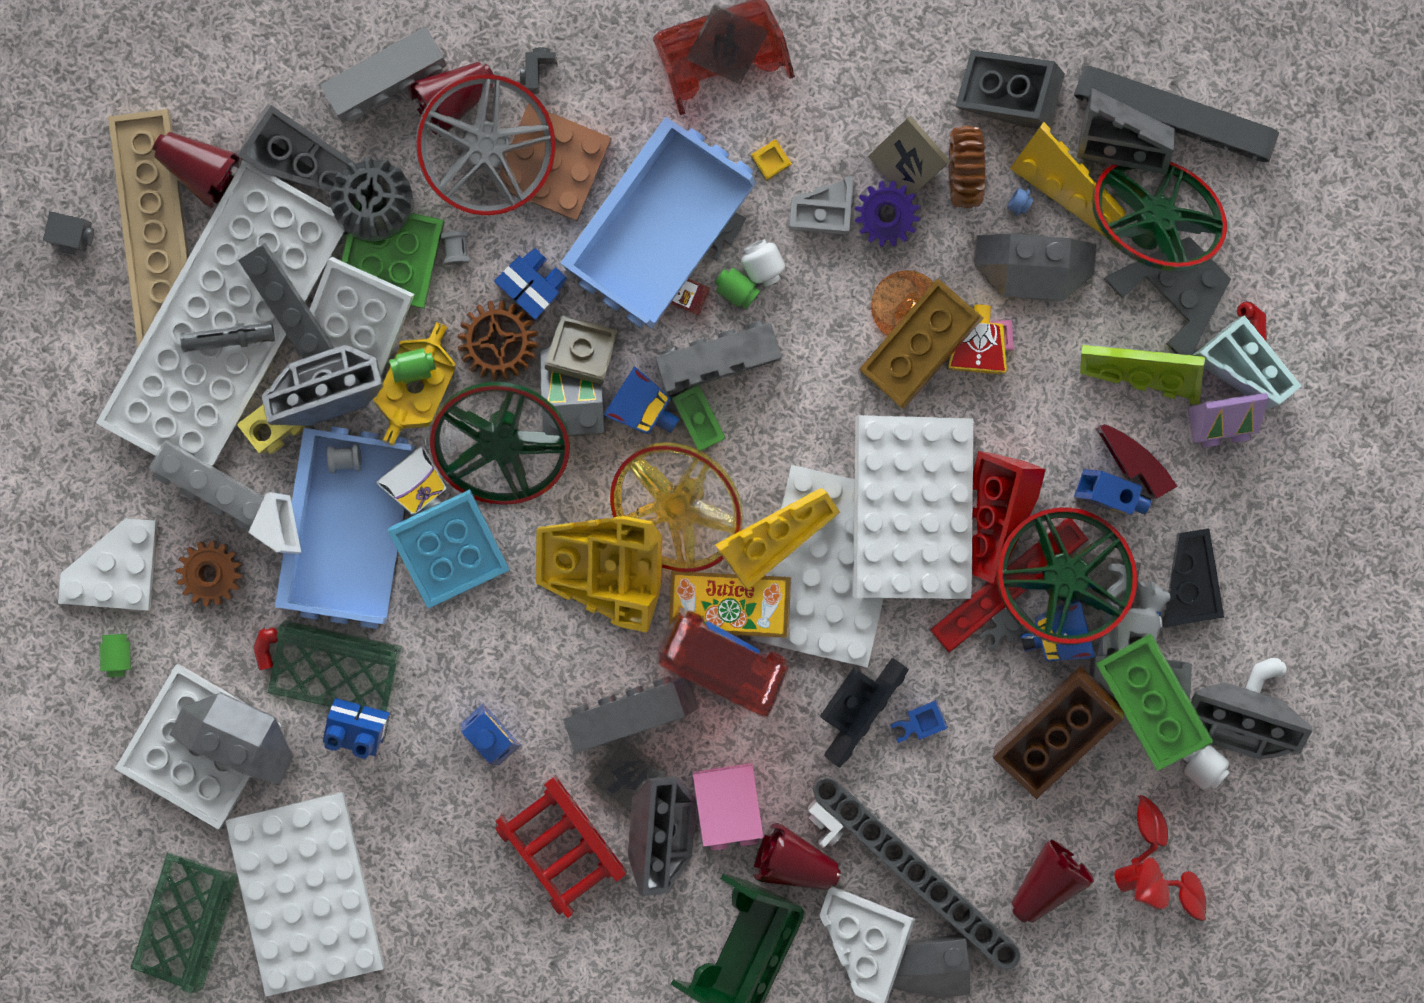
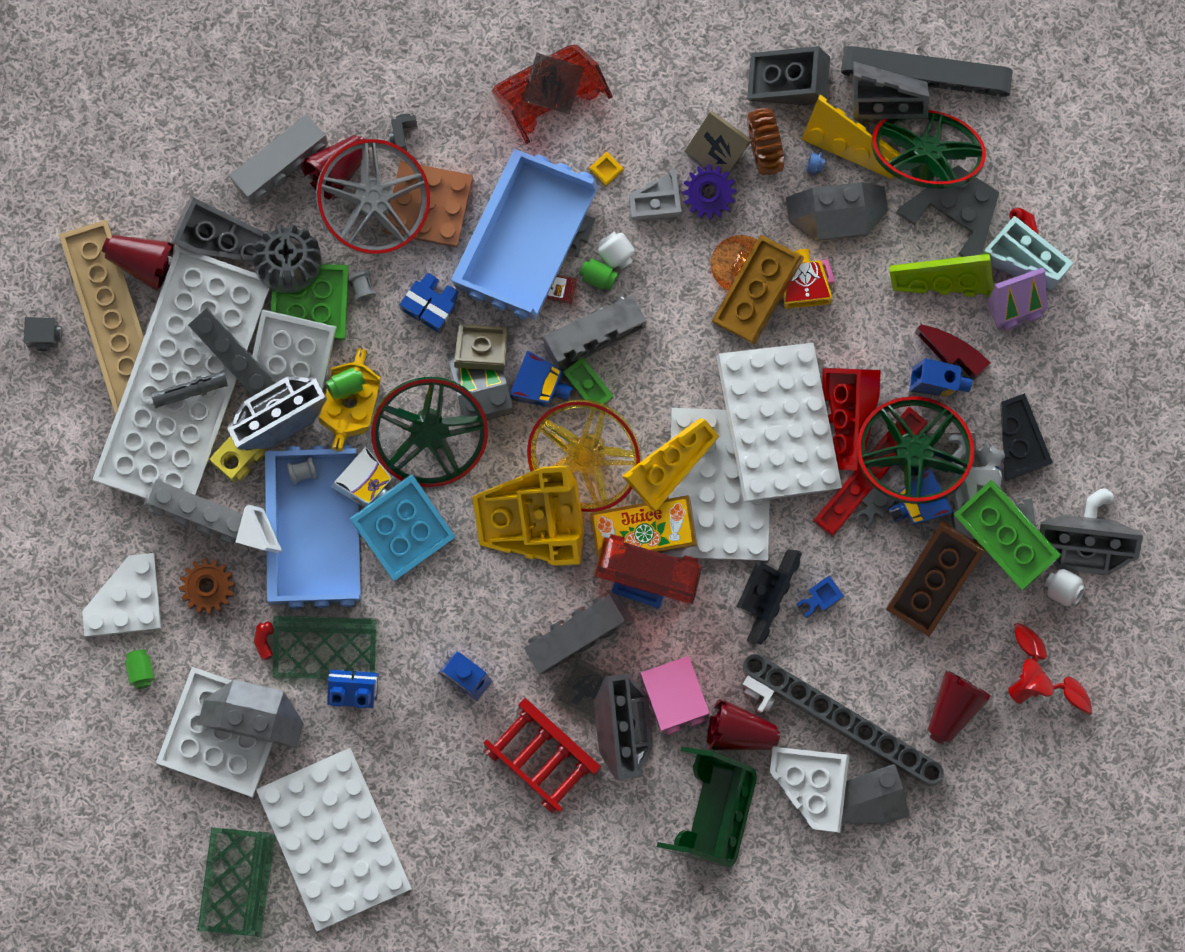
camera: 10 degrees left, 10 degrees down
(493, 314) = (400, 357): dark orange gear -> none

